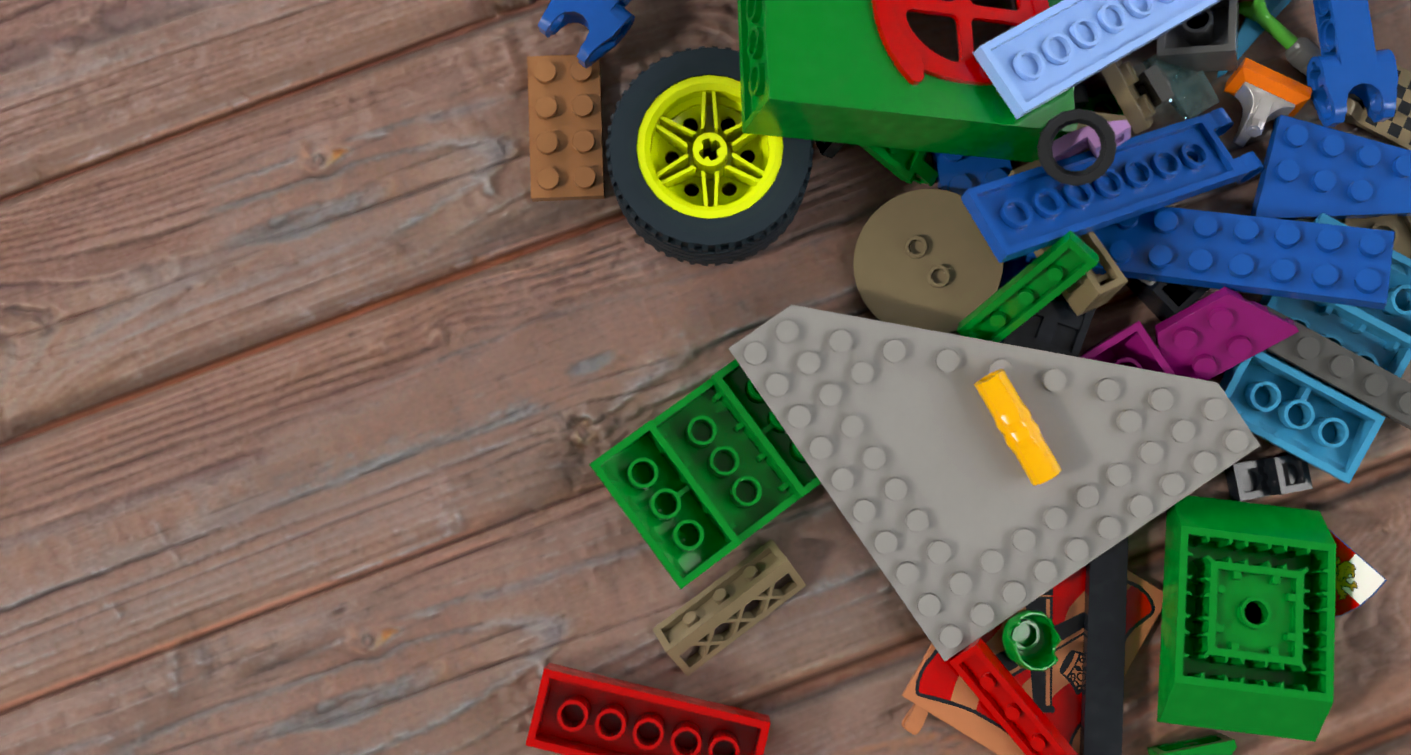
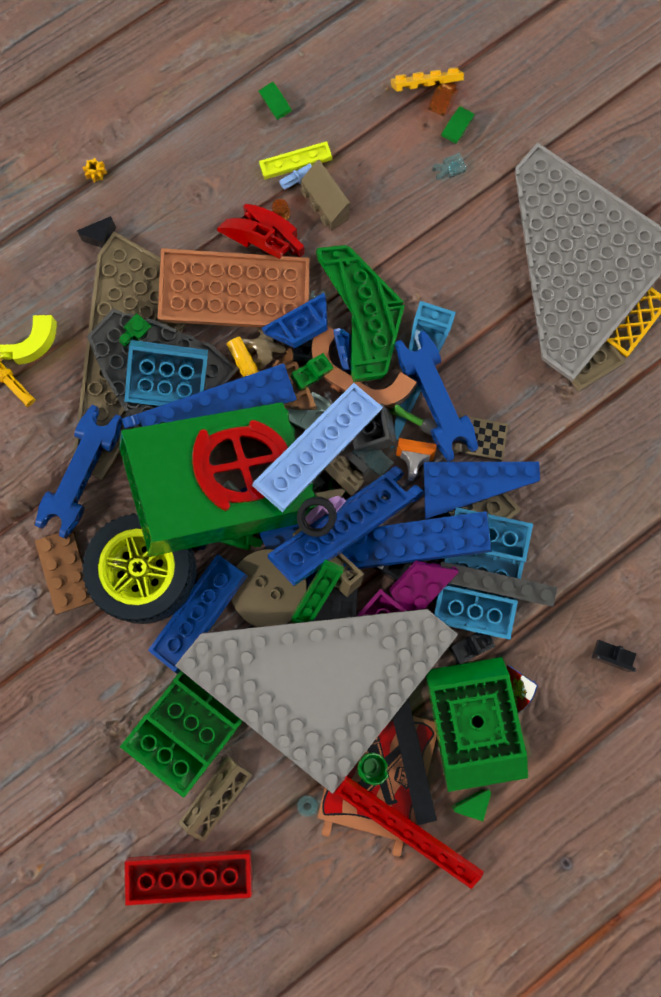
camera: 20 degrees left, 5 degrees down
(792, 267) = (199, 611): none -> blue plate
(879, 664) = (307, 799): none -> clear light blue plate
(1018, 427) = (332, 663): yellow axle -> none

